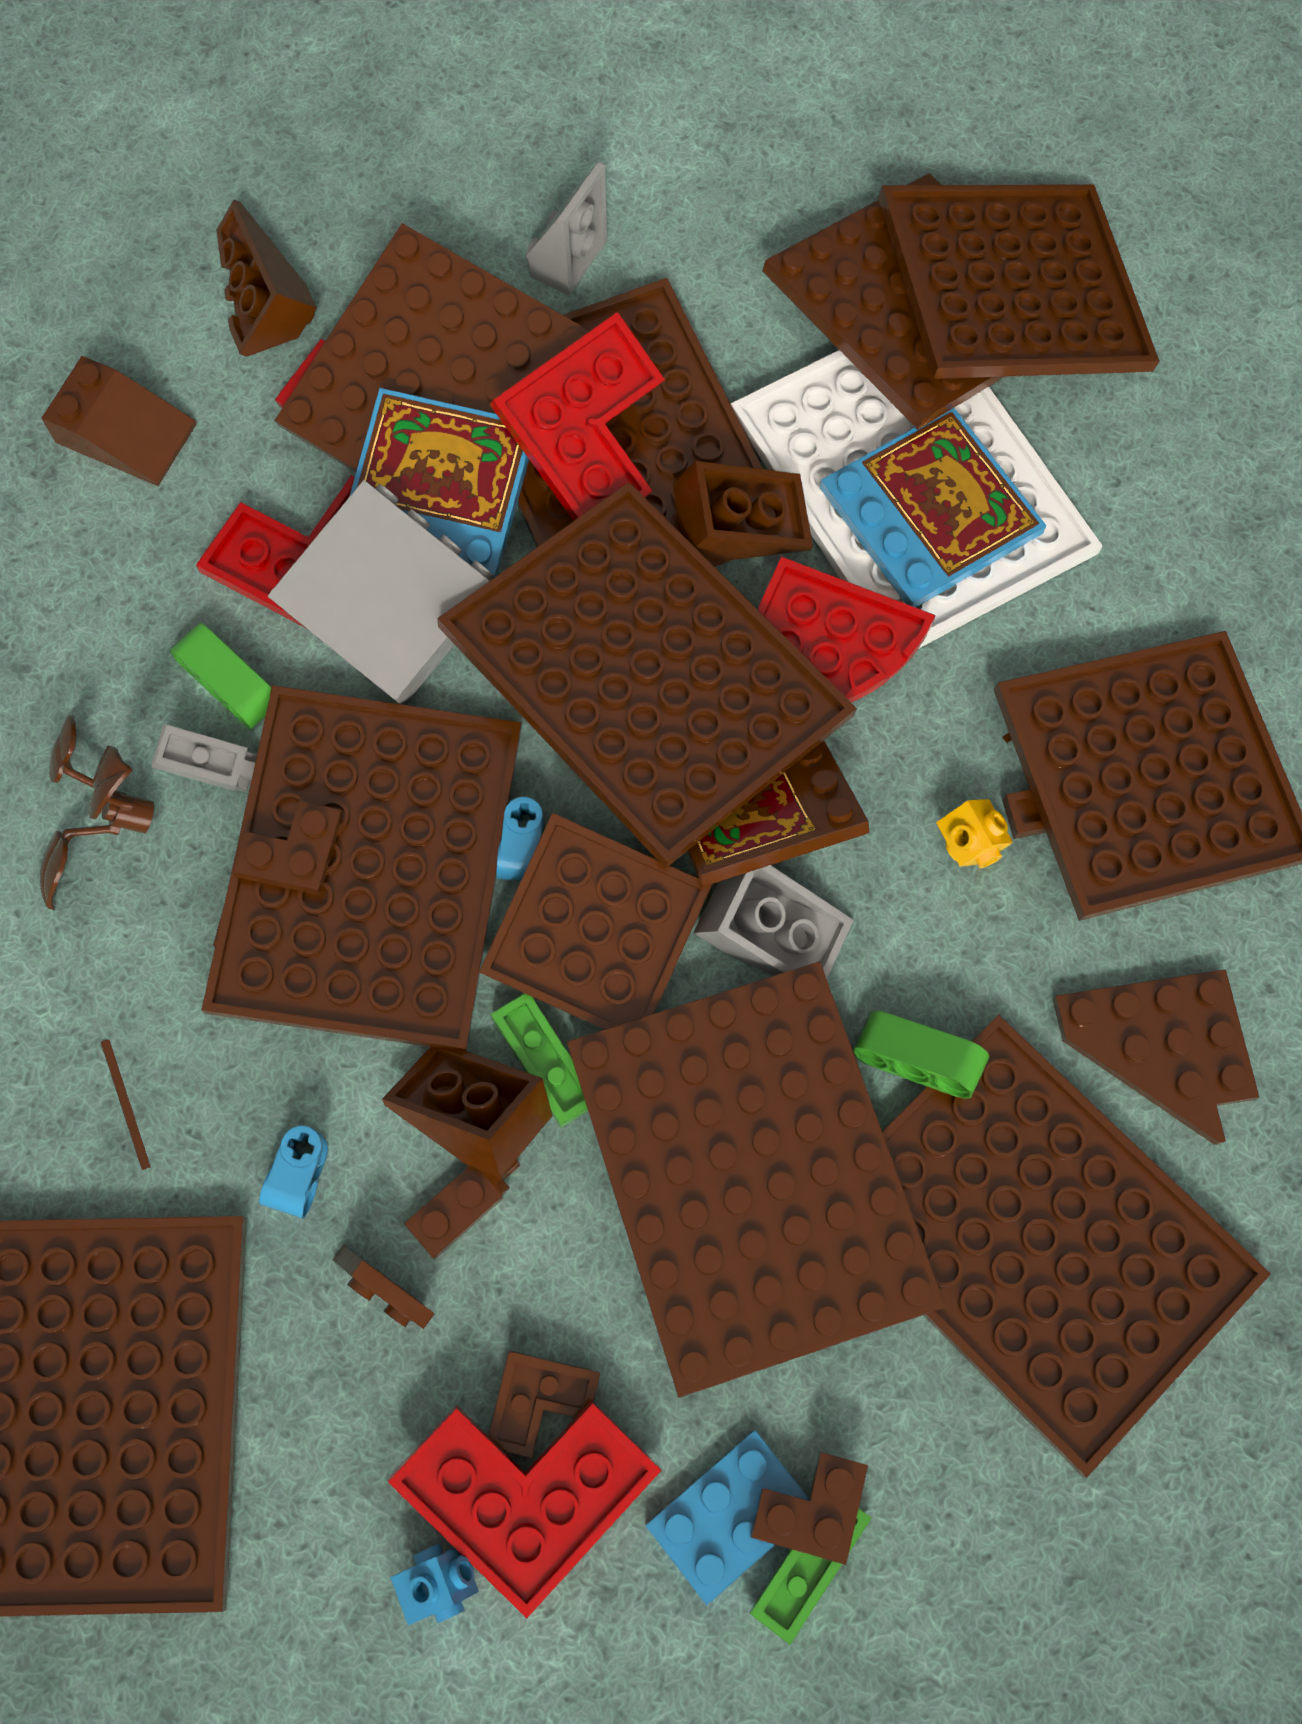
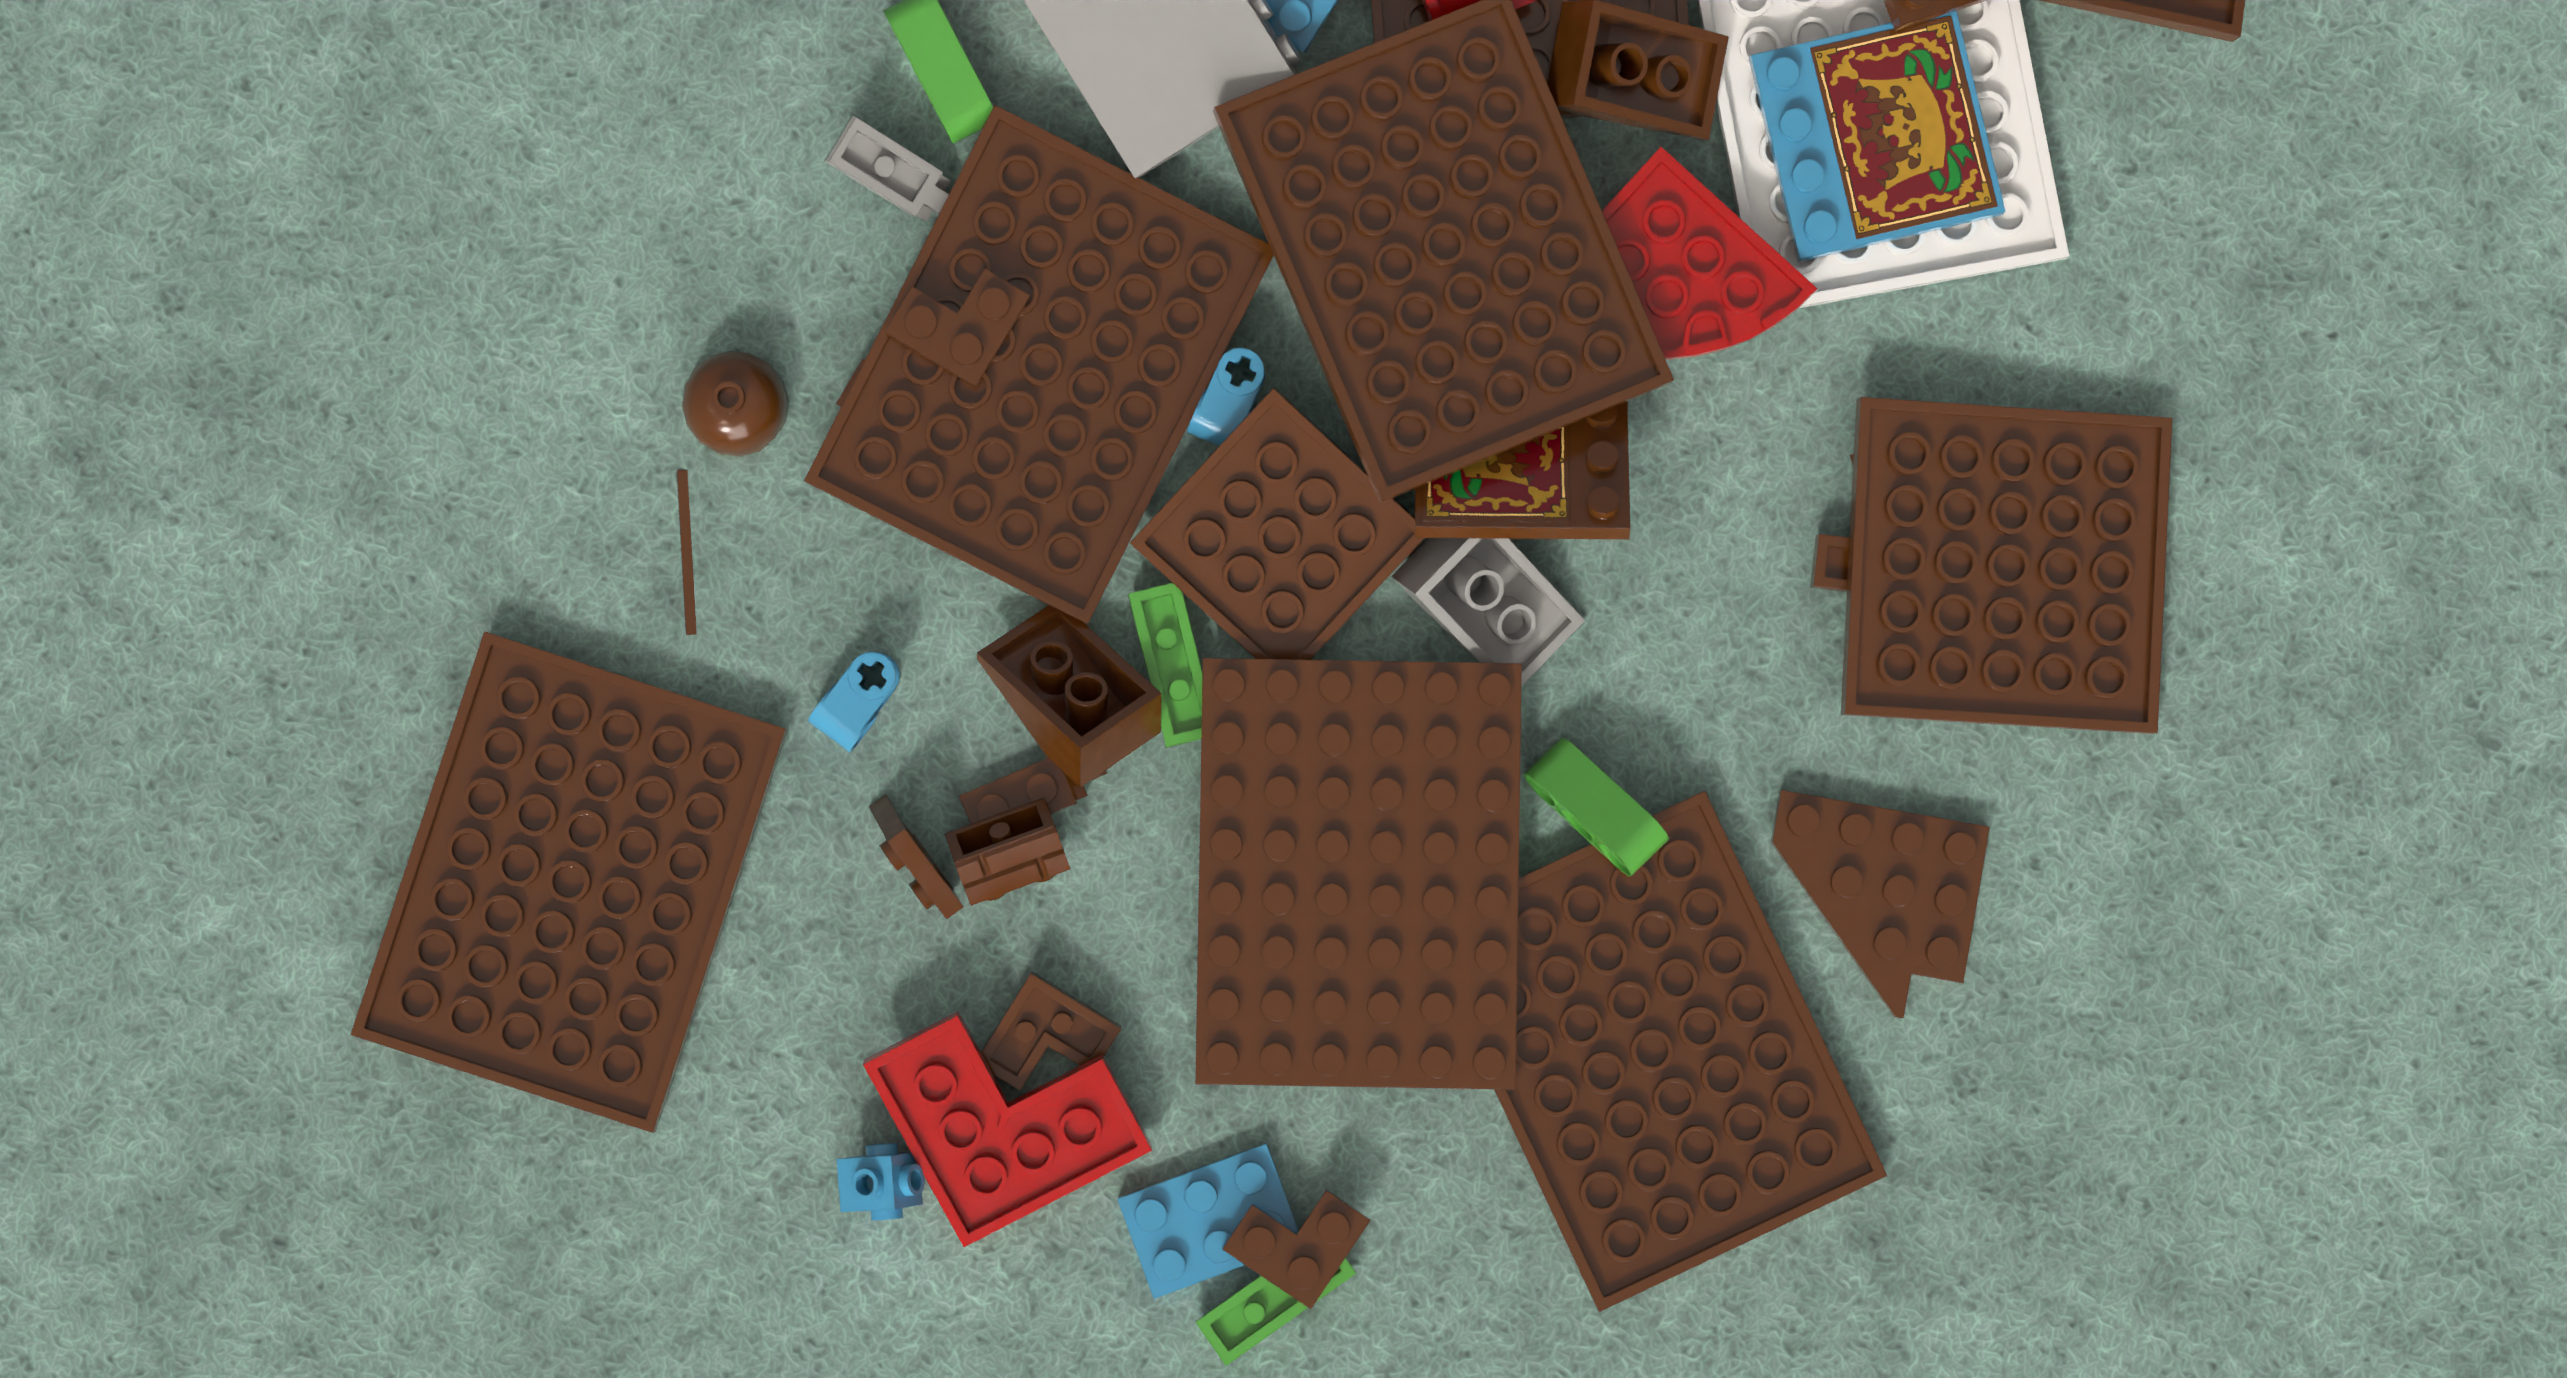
camera: 20 degrees right, 15 degrees up
(118, 807) = (773, 197): reddish brown plant -> none
(132, 973) = (735, 403): none -> reddish brown cylinder
(457, 1254) = (1007, 851): none -> reddish brown brick
(975, 833) = (1762, 570): yellow brick -> none

